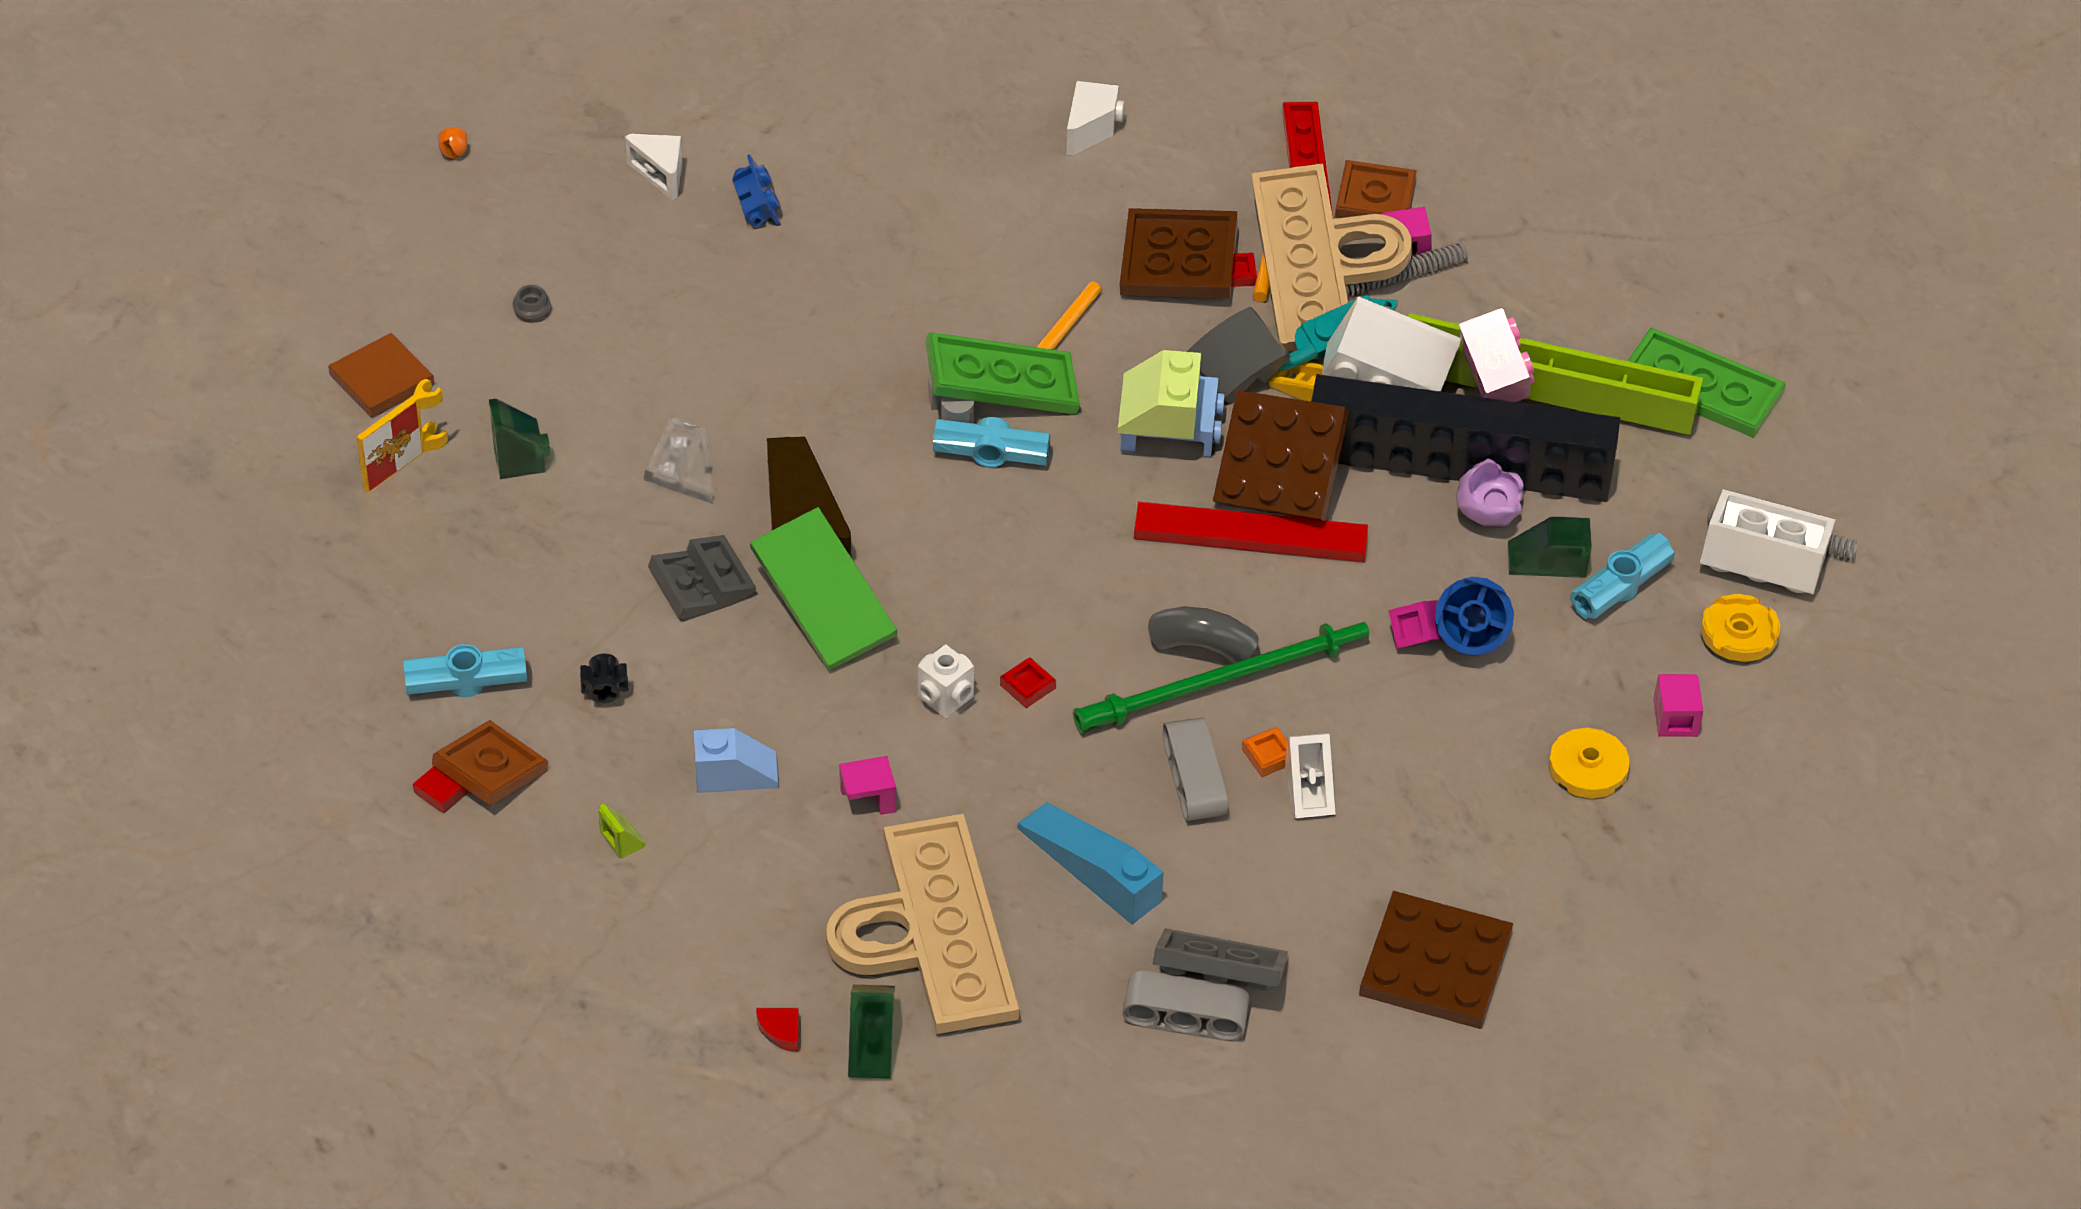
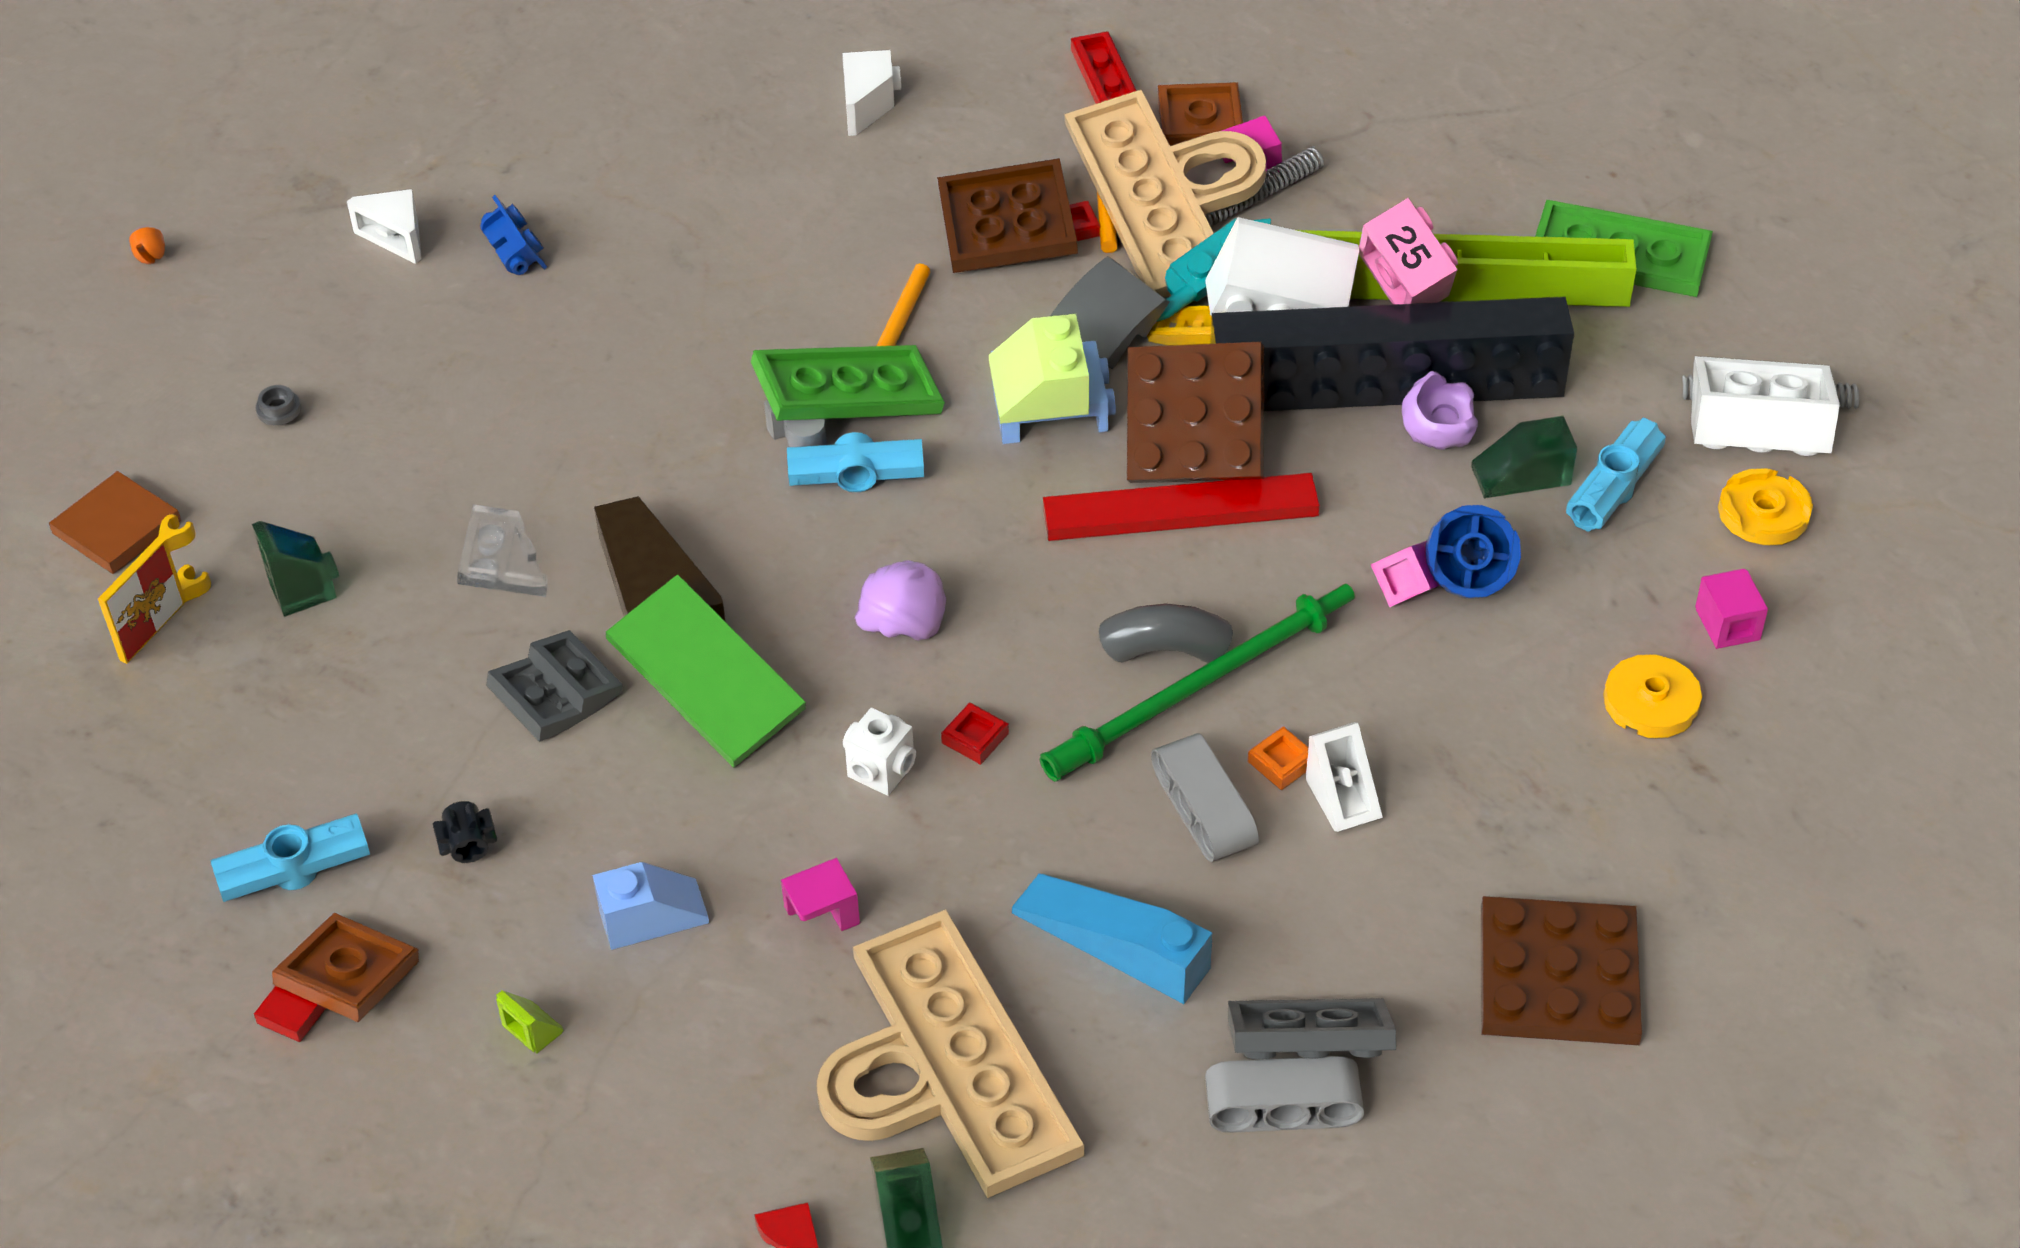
camera: 10 degrees left, 0 degrees up
(997, 564) = (902, 600): none -> lavender hair

